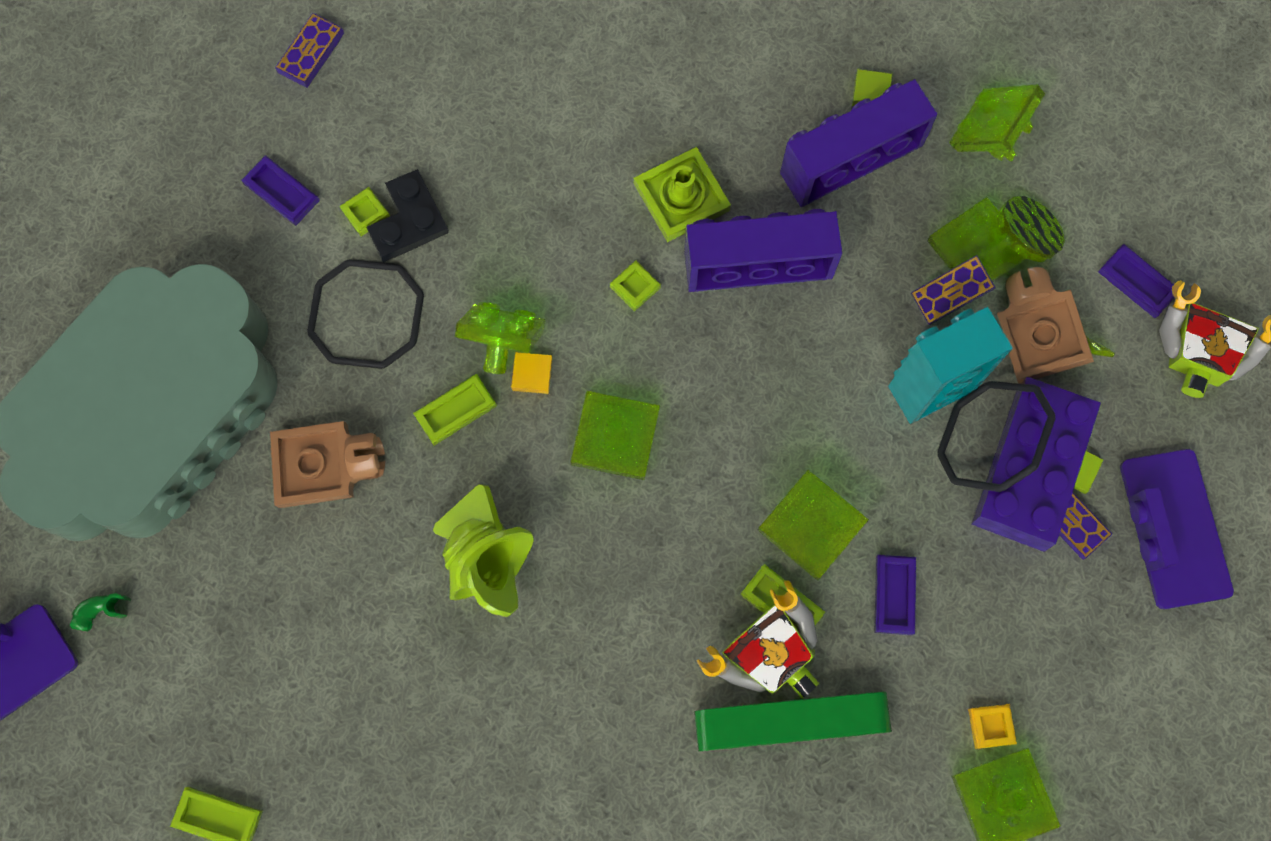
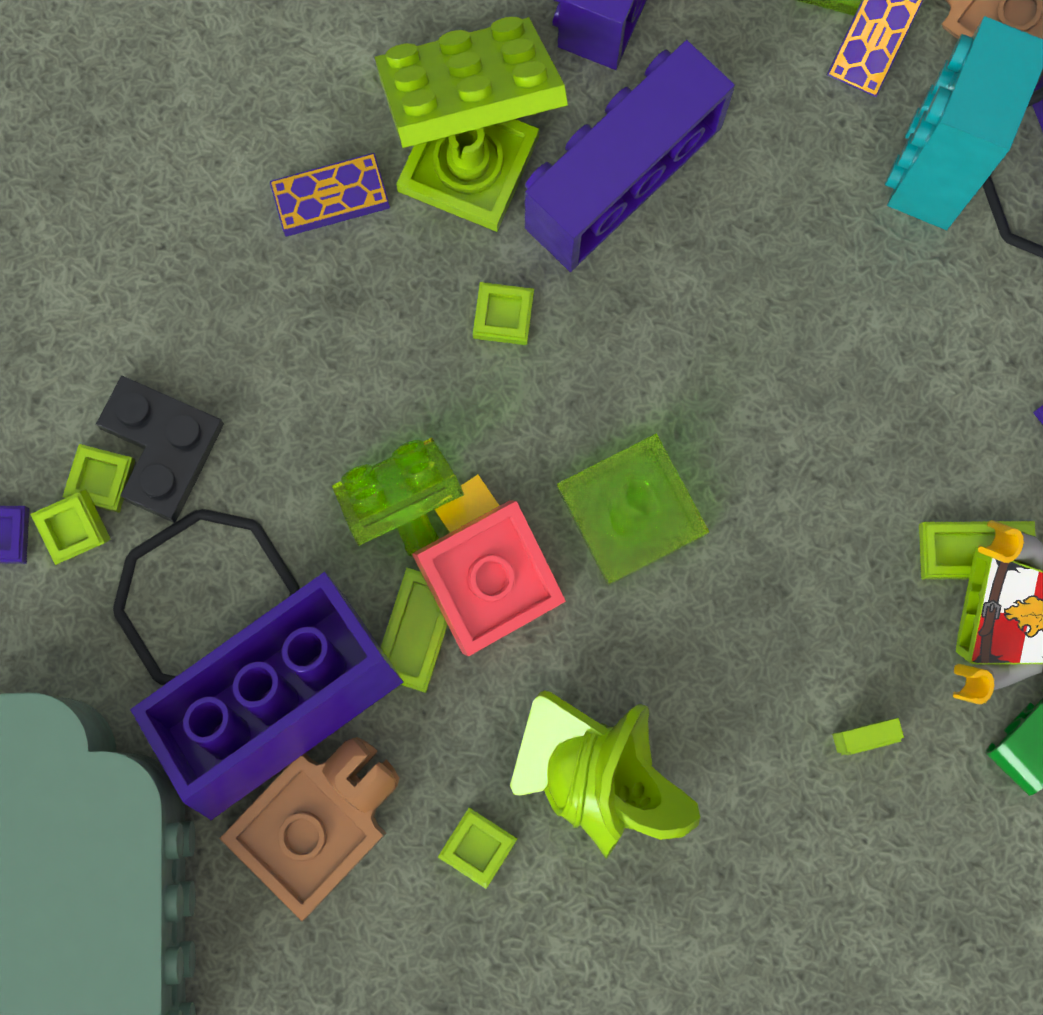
camera: 40 degrees left, 5 degrees up
(330, 223) = (70, 526): none -> lime tile
(349, 378) = (265, 697): none -> dark purple brick
(392, 543) = (477, 847): none -> lime tile
(511, 409) = (489, 577): none -> coral plate
(597, 159) = (329, 194): none -> dark purple tile
(637, 649) = (868, 737): none -> lime tile
(710, 151) = (469, 81): none -> lime plate
(812, 525) = (951, 433): clear neon green plate -> none

